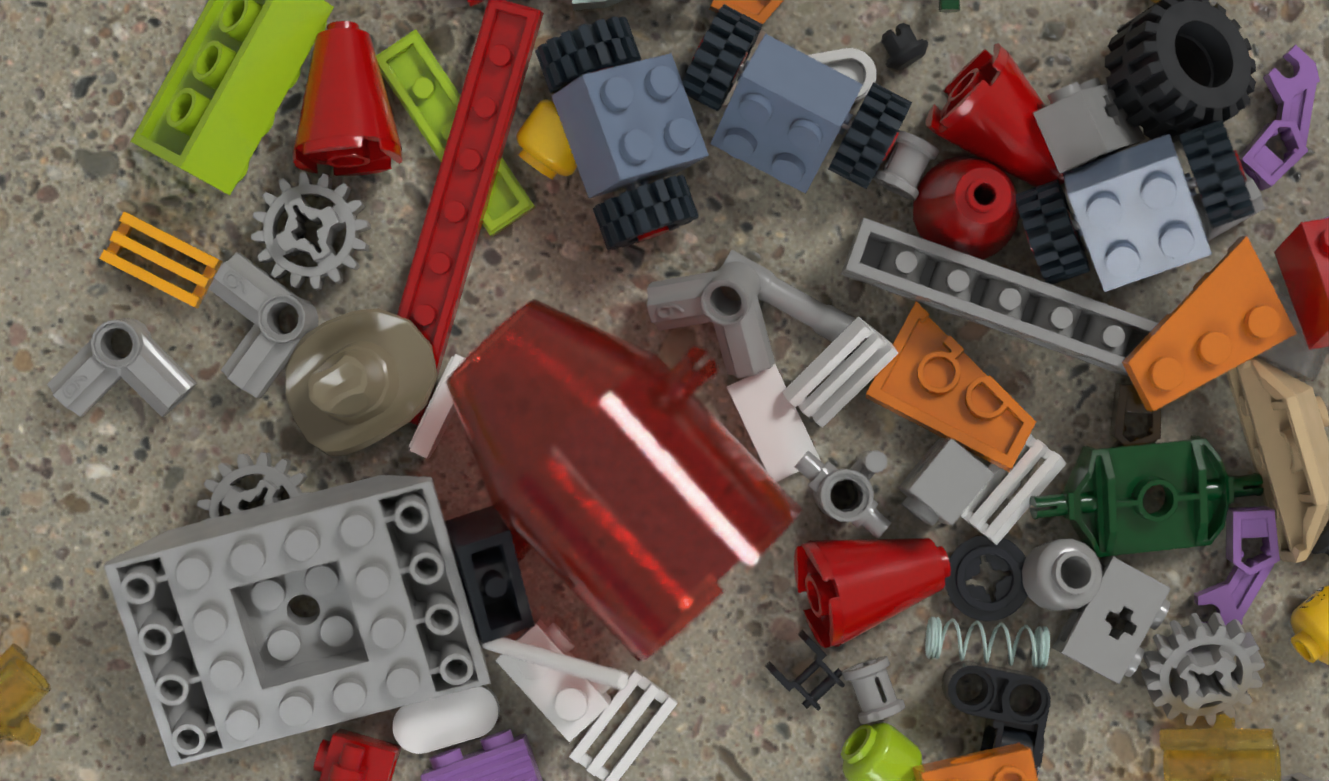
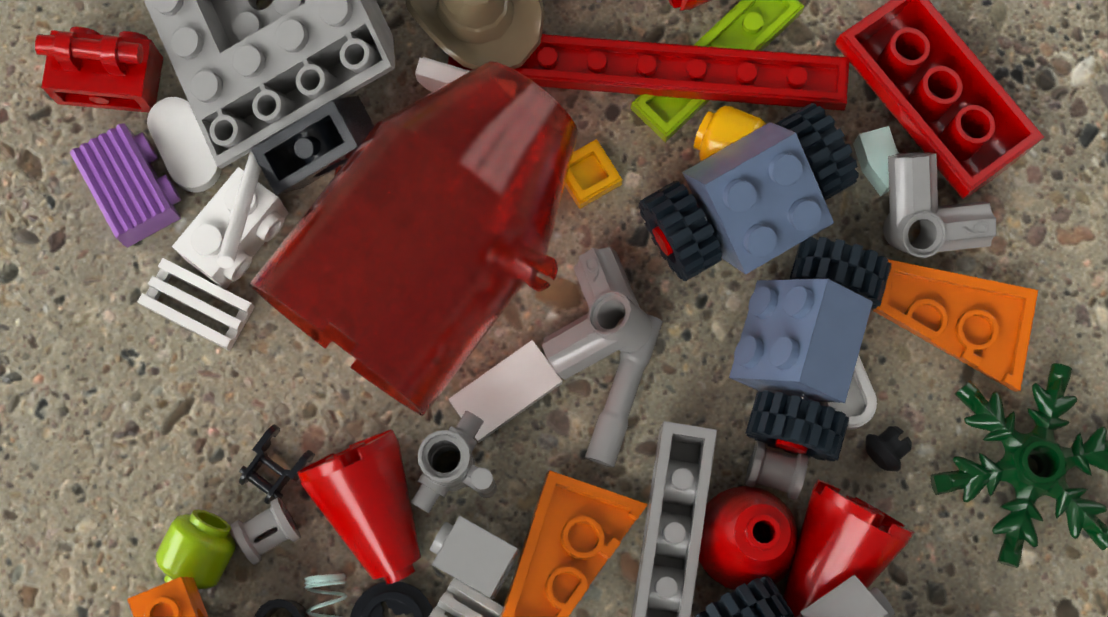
camera: 80 degrees right, 10 degrees down
(560, 289) = (591, 174): none -> yellow tile
(846, 376) = (562, 449): white tile -> none

